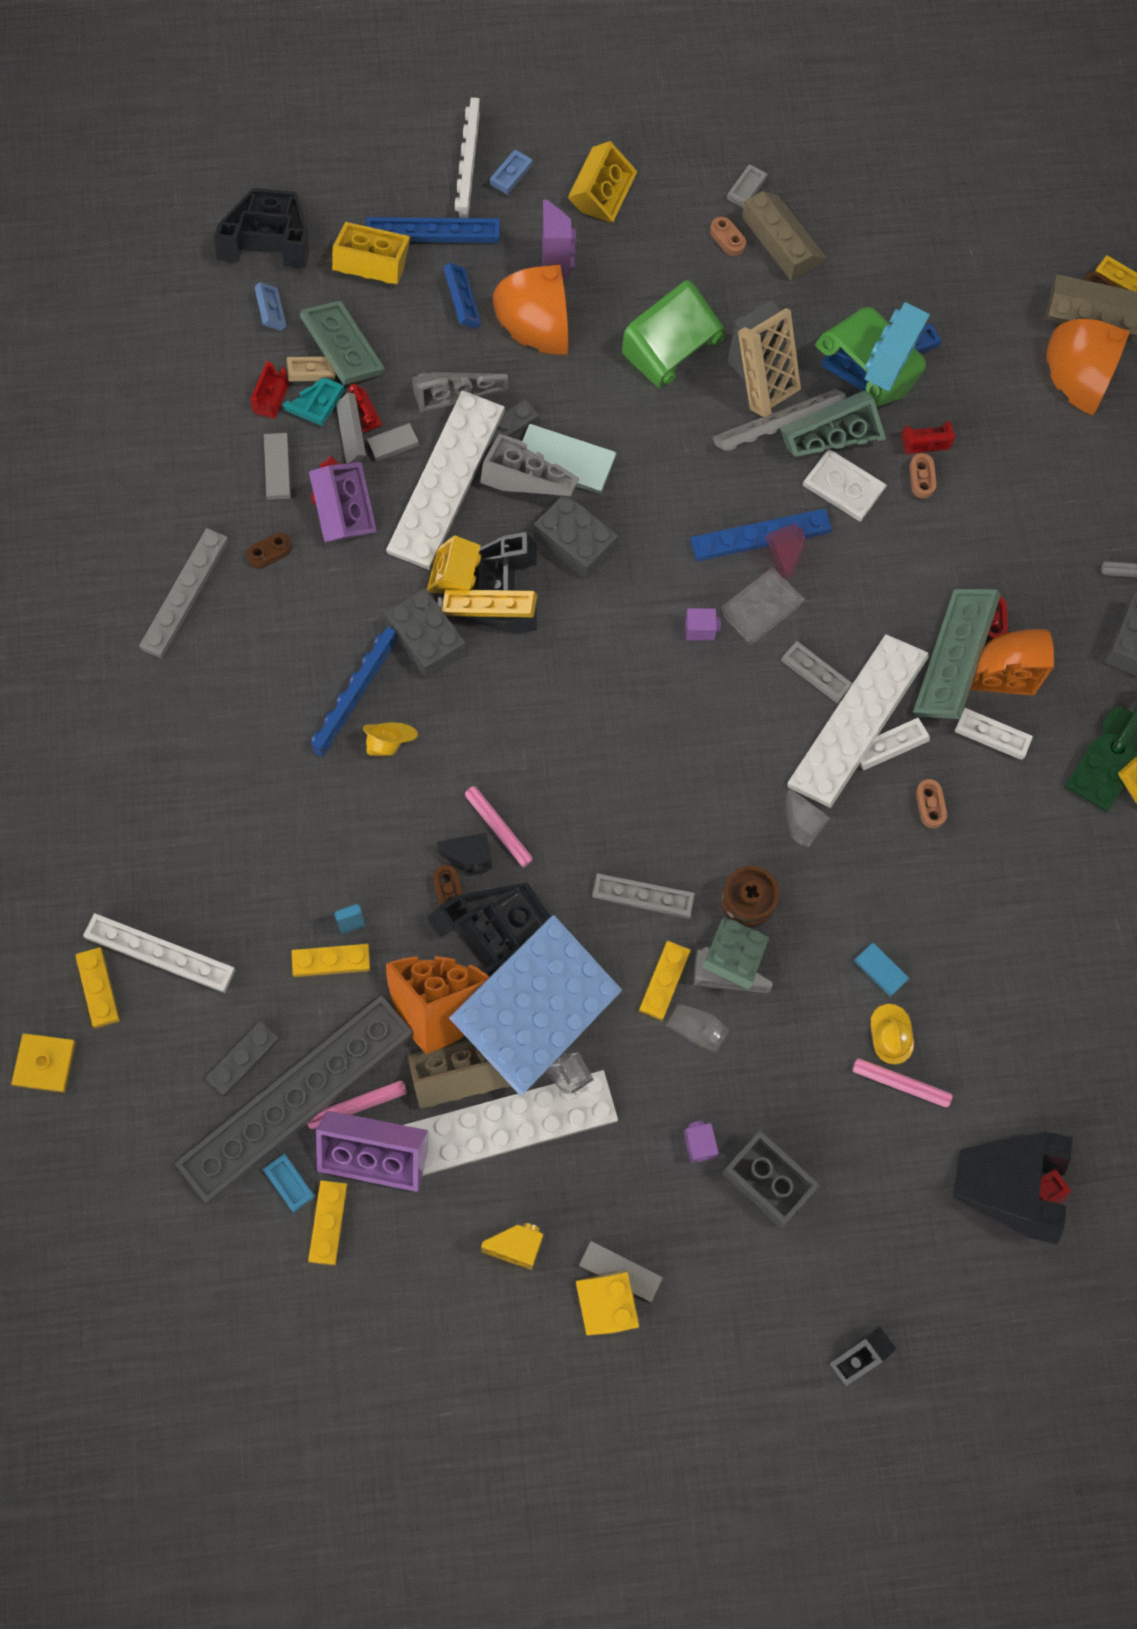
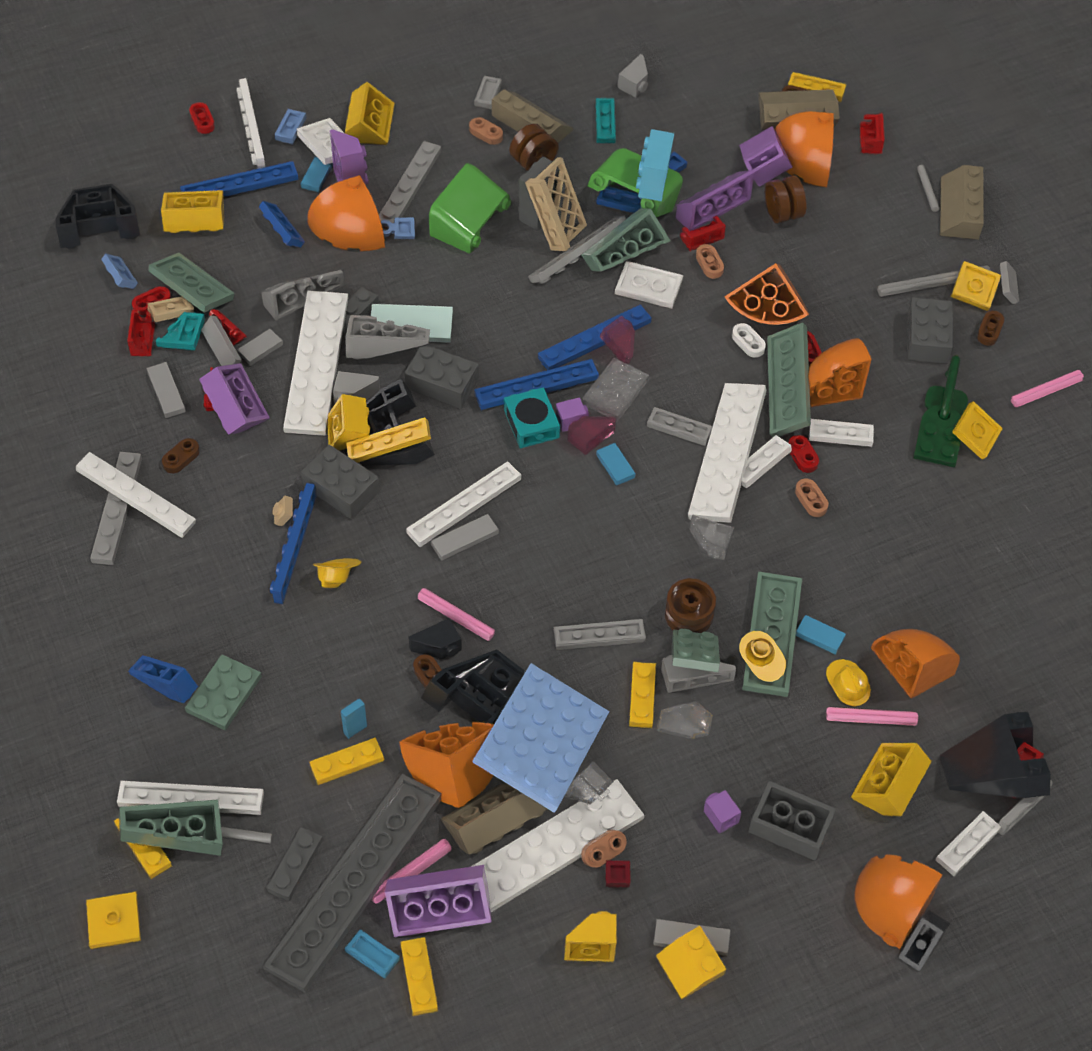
camera: 15 degrees left, 15 degrees down
(133, 985) = (178, 826): none -> sand green wedge
(172, 809) = (165, 678): none -> blue slope
(194, 1006) = (246, 835): none -> light grey bar
(206, 586) = (135, 494): none -> white plate
(229, 842) = (223, 692): none -> sand green plate
(292, 349) = (157, 294): none -> red plate
(354, 650) = (283, 510): none -> tan plate
(417, 138) = (202, 118): none -> red plate
(476, 523) = (355, 385): none -> light grey slope
(521, 241) = (316, 175): none -> dark azure tile
(536, 189) = (317, 138): none -> white plate
(537, 737) = (464, 537): none -> light grey tile
(549, 698) = (463, 504): none -> white plate
(562, 1143) = (605, 848): none -> nougat plate
(567, 1177) = (617, 873): none -> dark red plate
(593, 337) = (402, 228): none -> medium blue plate
(619, 283) = (410, 182): none -> light grey plate
(657, 615) = (531, 417): none -> teal brick
(676, 575) = (551, 381): none -> blue plate
(714, 652) = (590, 432): none -> clear pink slope
(730, 697) = (615, 464): none -> dark azure tile
(771, 277) = (531, 145): none -> reddish brown wheel
(806, 982) = (763, 656): none -> yellow piece
(829, 954) = (775, 614): none -> sand green plate
(845, 1302) = (894, 896): none -> orange brick
(868, 259) = (605, 120): none -> teal tile
(896, 1162) = (892, 778): none -> yellow slope
(920, 212) = (634, 77): none -> light grey slope
(931, 590) = (751, 343): none -> white plate
(942, 744) = (801, 452): none -> red plate
(951, 1262) = (968, 843): none -> white plate
(956, 399) = (715, 200): none -> medium lavender slope
(972, 546) = (769, 298): none -> orange brick
(973, 1033) = (916, 659): none -> orange brick
(1014, 1247) = (1018, 813): none -> light grey tile
(1033, 359) = (765, 156): none -> medium lavender slope
(1036, 423) = (785, 199): none -> reddish brown wheel

